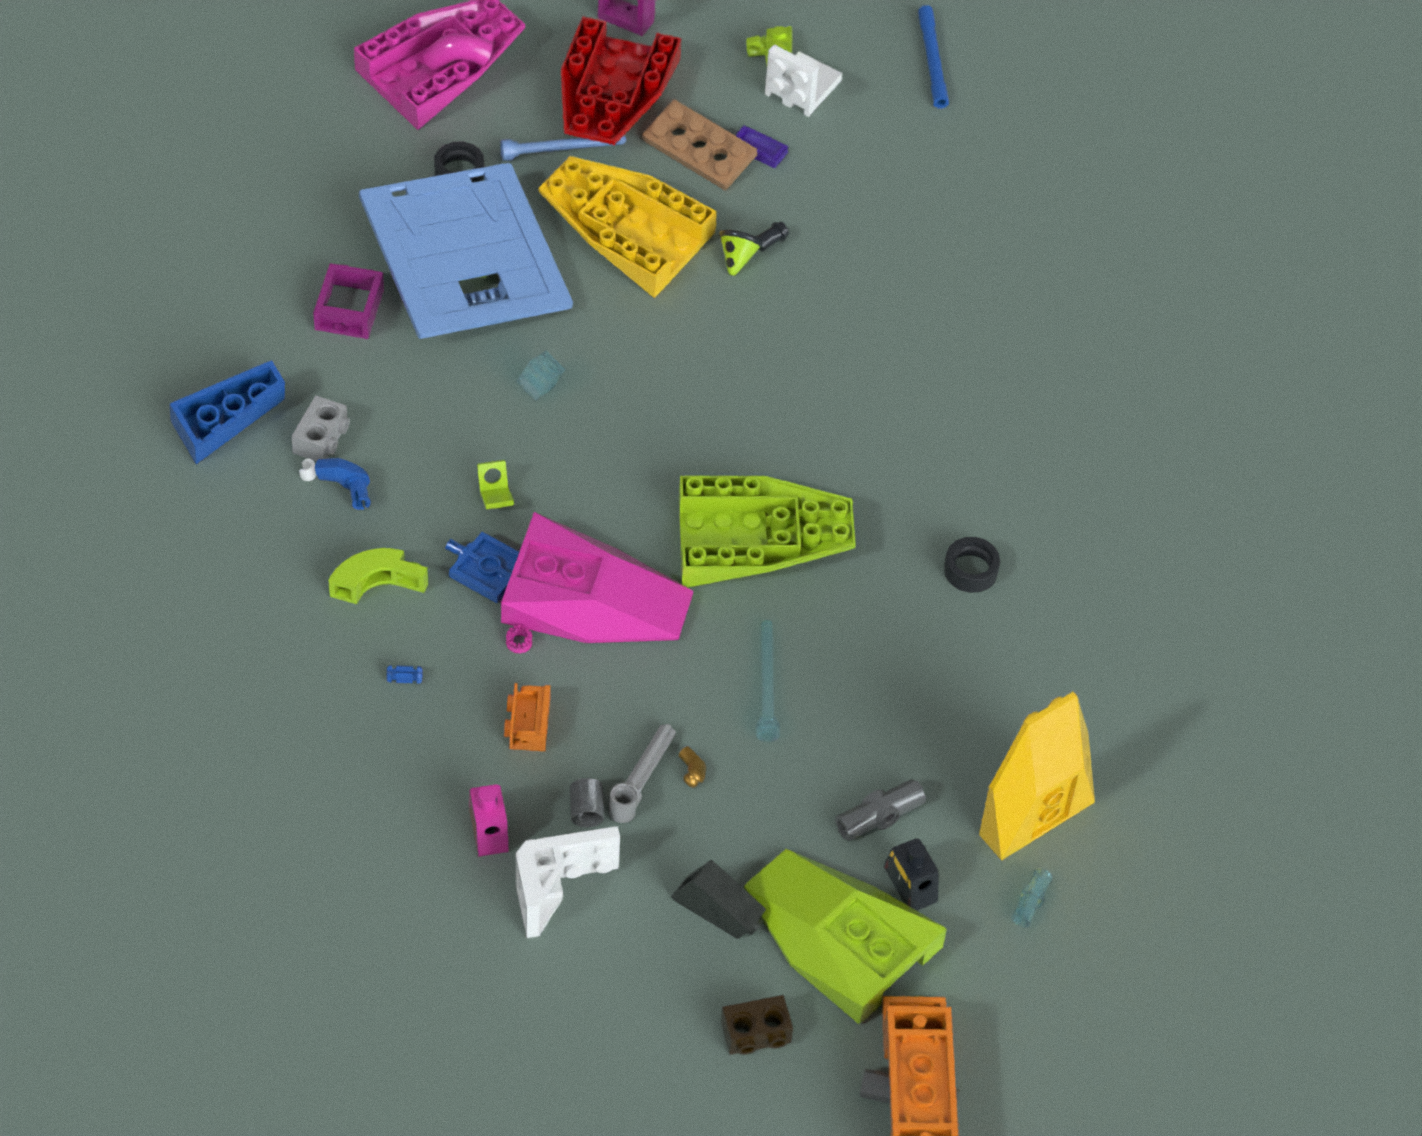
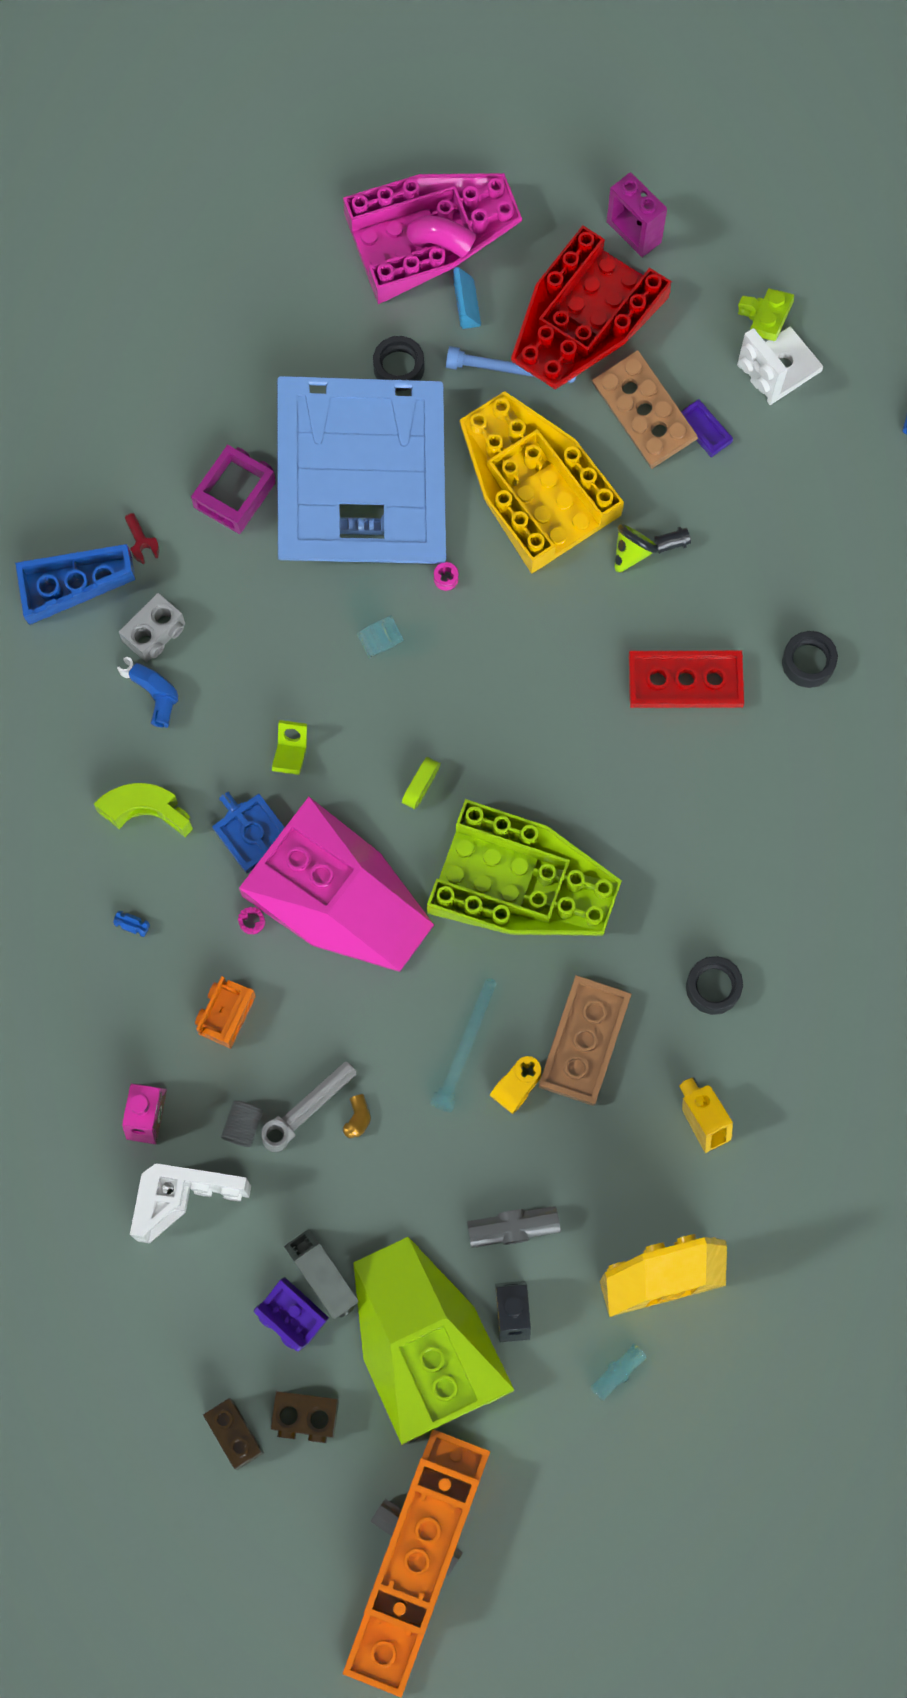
camera: 25 degrees right, 20 degrees up
(283, 367) = (141, 540): none -> dark red bar
(497, 104) = (466, 299): none -> dark azure slope
(577, 325) = (442, 568): none -> dark pink bush
(630, 482) = (421, 783): none -> lime beam
(695, 1061) = (233, 1434): none -> dark brown brick
(706, 944) = (291, 1315): none -> dark purple bracket
(827, 351) = (697, 664): none -> red plate
(830, 692) = (513, 1087): none -> yellow piece
(875, 642) = (584, 1040): none -> medium nougat plate
(932, 307) = (814, 639): none -> black tyre
(1015, 664) = (705, 1115): none -> yellow torso

